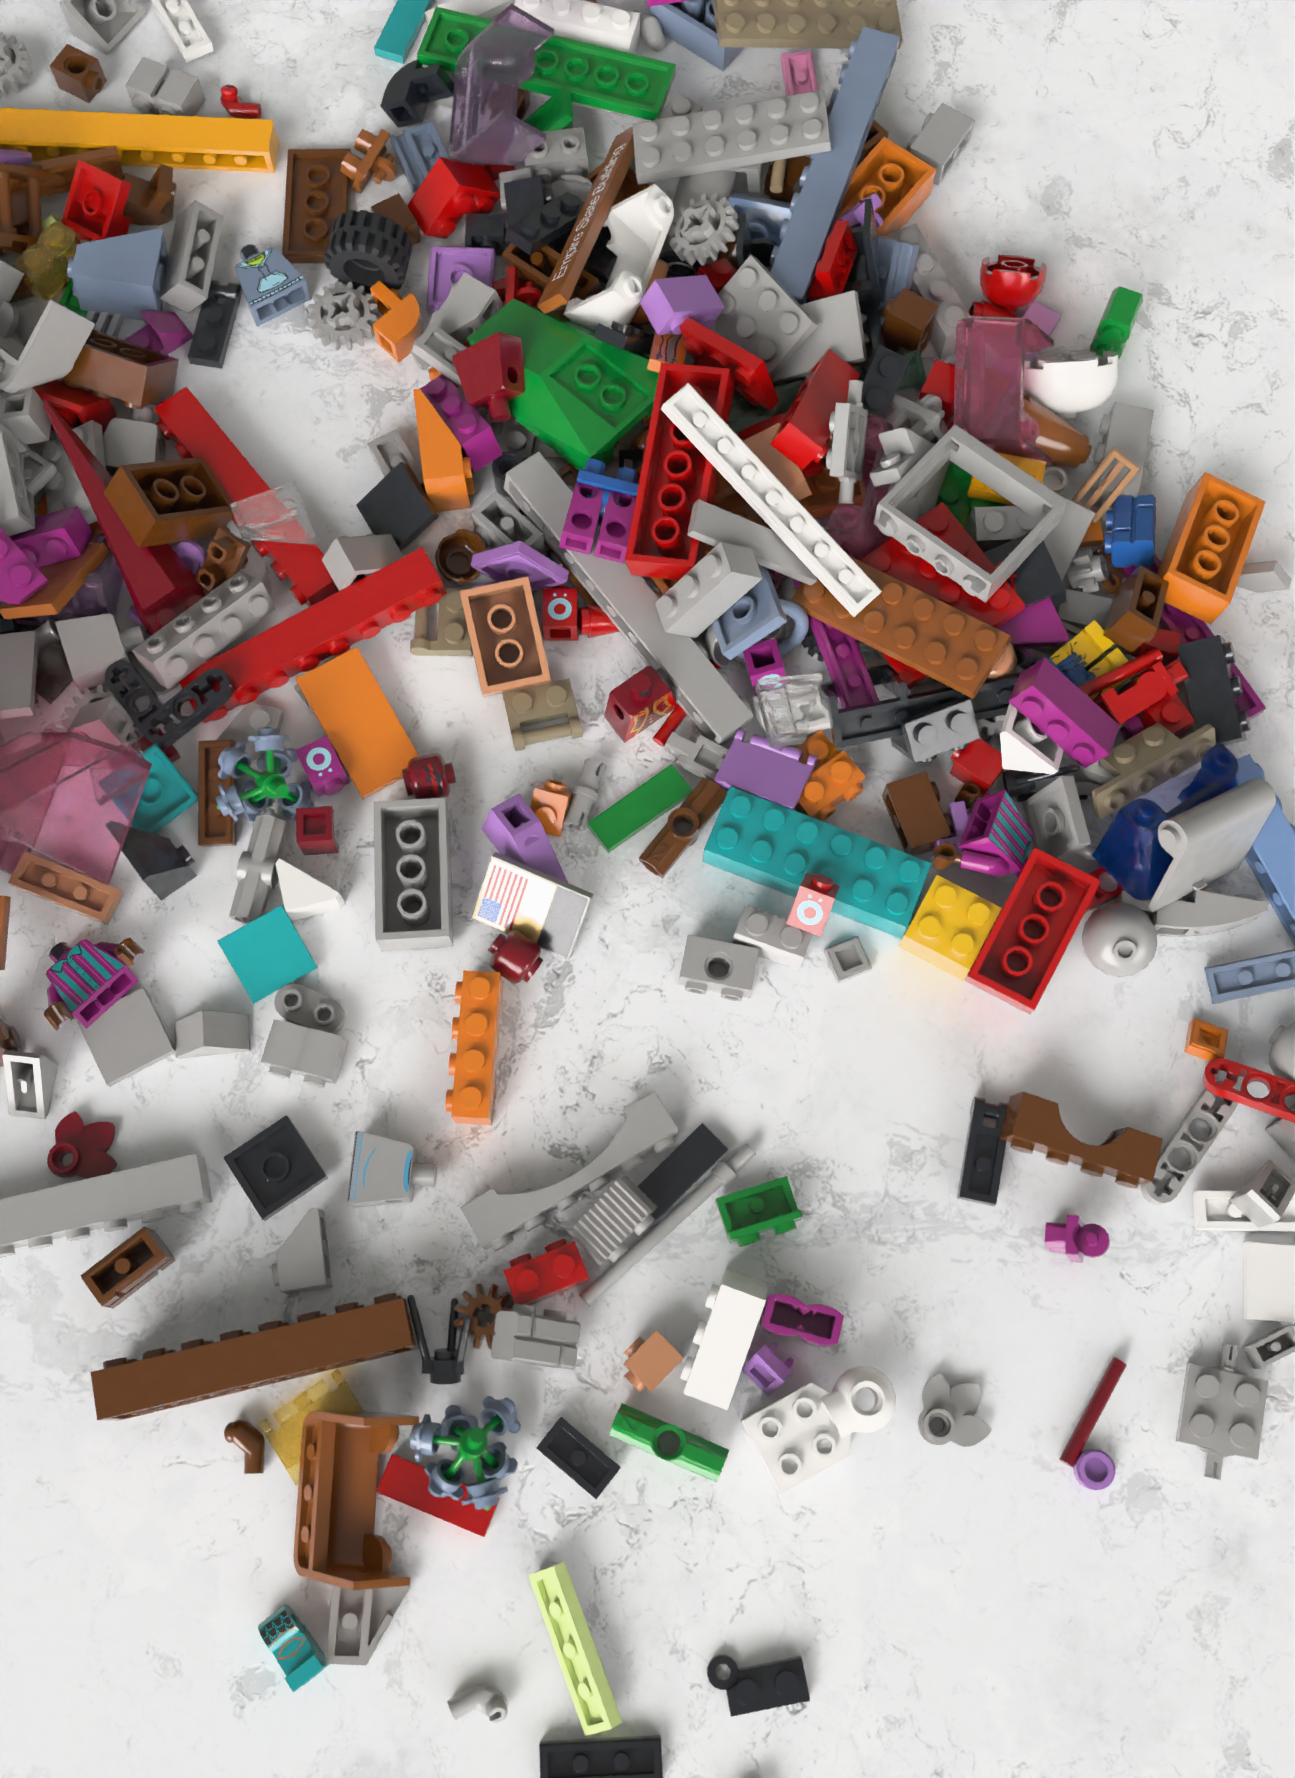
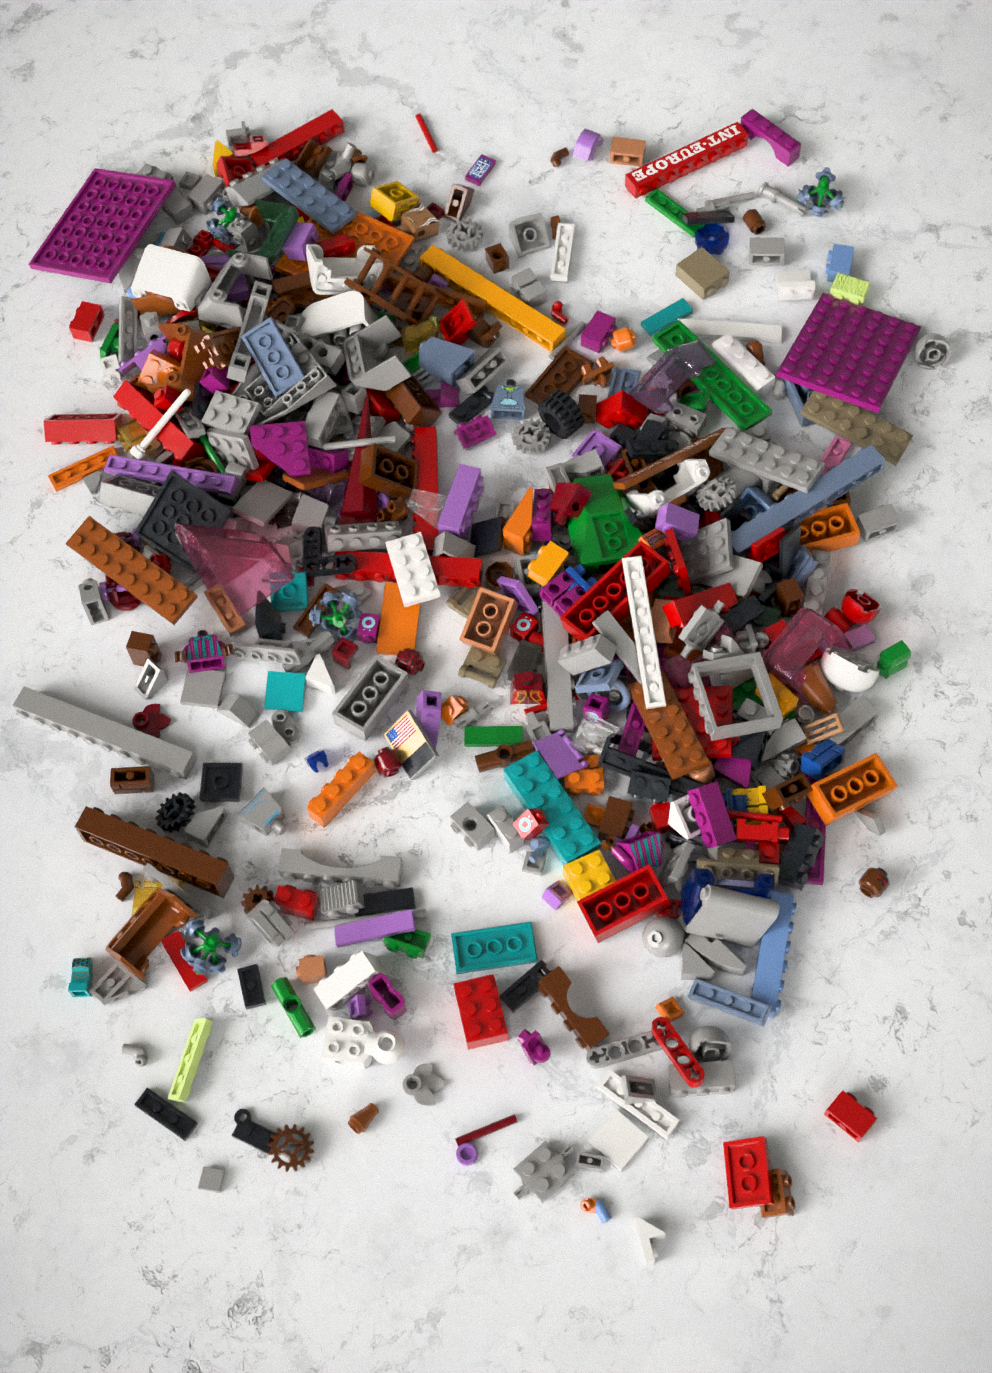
camera: 40 degrees right, 10 degrees down
(89, 482) = (359, 442): none -> light grey bar
(193, 906) = (268, 650): none -> light grey bracket
(241, 1270) = (175, 812): none -> black gear
(252, 360) = (475, 431): none -> magenta bracket
(283, 141) = (567, 340): none -> light grey bar
(320, 477) = (462, 501): none -> medium lavender brick
(322, 98) = (598, 332): none -> magenta brick
(327, 630) = (412, 569): none -> white plate
(329, 1395) = (169, 886): none -> light grey plate
(368, 87) = (623, 339): none -> orange head
(396, 1027) = (312, 760): none -> clear blue tile
(400, 321) = (555, 453): orange brick -> none
(412, 90) = (639, 352): black brick -> none
(447, 1362) = (227, 909): black plant -> none
(540, 489) = (548, 563): none -> light orange brick
(601, 662) = (525, 659): none -> clear smoke brick
(698, 1229) = (374, 928): none -> medium lavender tile
(828, 1679) = (288, 1138): none -> reddish brown gear
(838, 929) = (537, 844): none -> sand blue plate
(856, 213) = (804, 532): medium lavender tile -> none
(878, 826) = (594, 815): none -> orange tile
(889, 1128) = (494, 948): none -> teal tile
(907, 1534) = (361, 1120): none -> dark orange cone
(916, 984) = (556, 895): none -> medium lavender slope
(953, 1241) = (481, 1011): none -> red brick
(1188, 952) = (694, 966): none -> light grey slope

